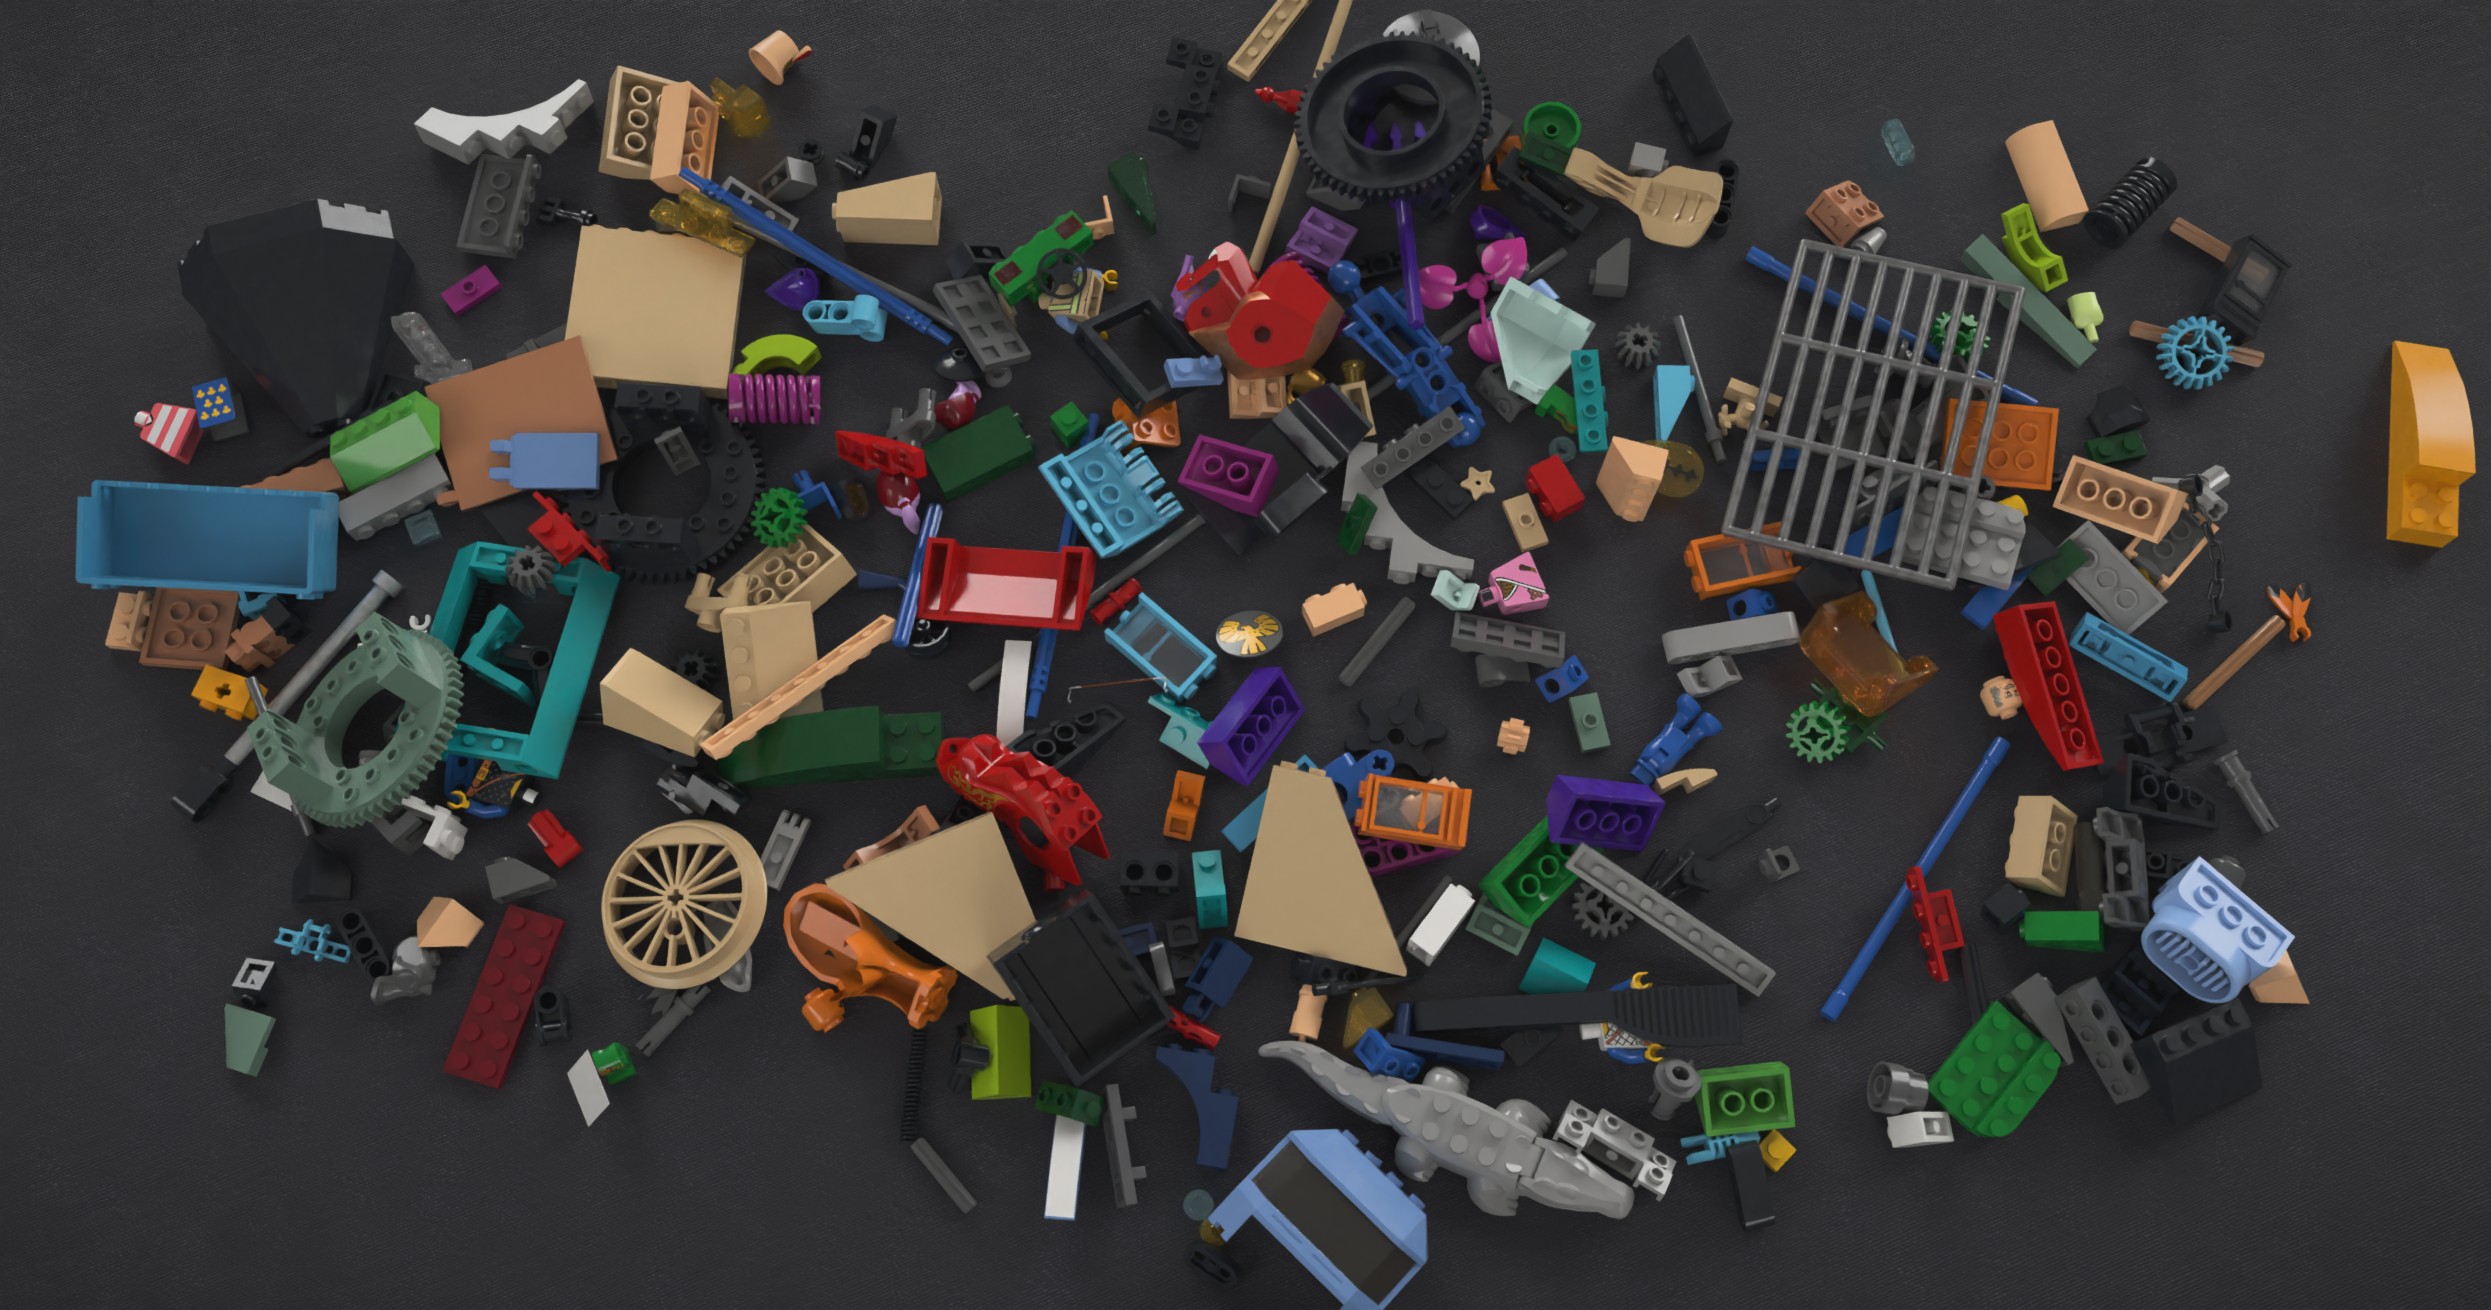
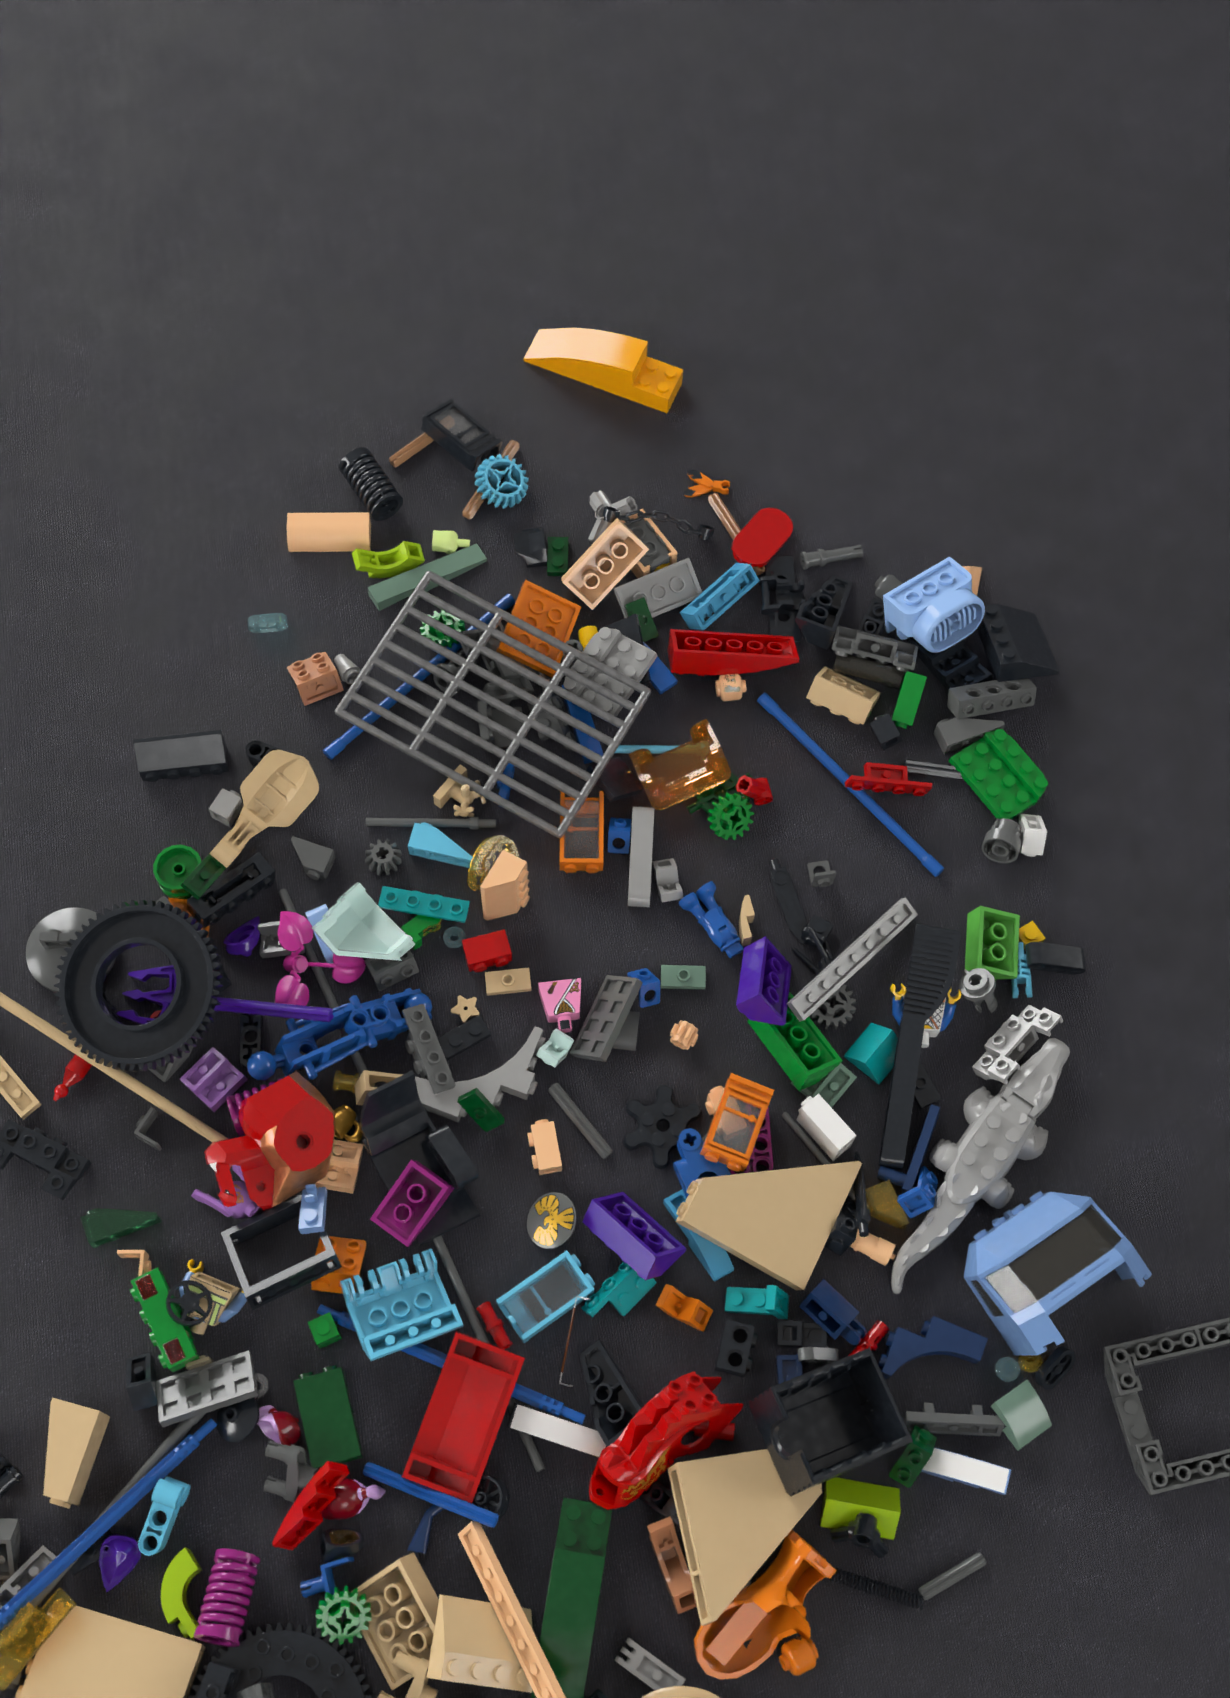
camera: 80 degrees left, 5 degrees down
(1145, 1228) = (1022, 1414): none -> sand green slope
(1866, 760) = (756, 789): none -> red piece
(2239, 694) = (762, 537): none -> red tile

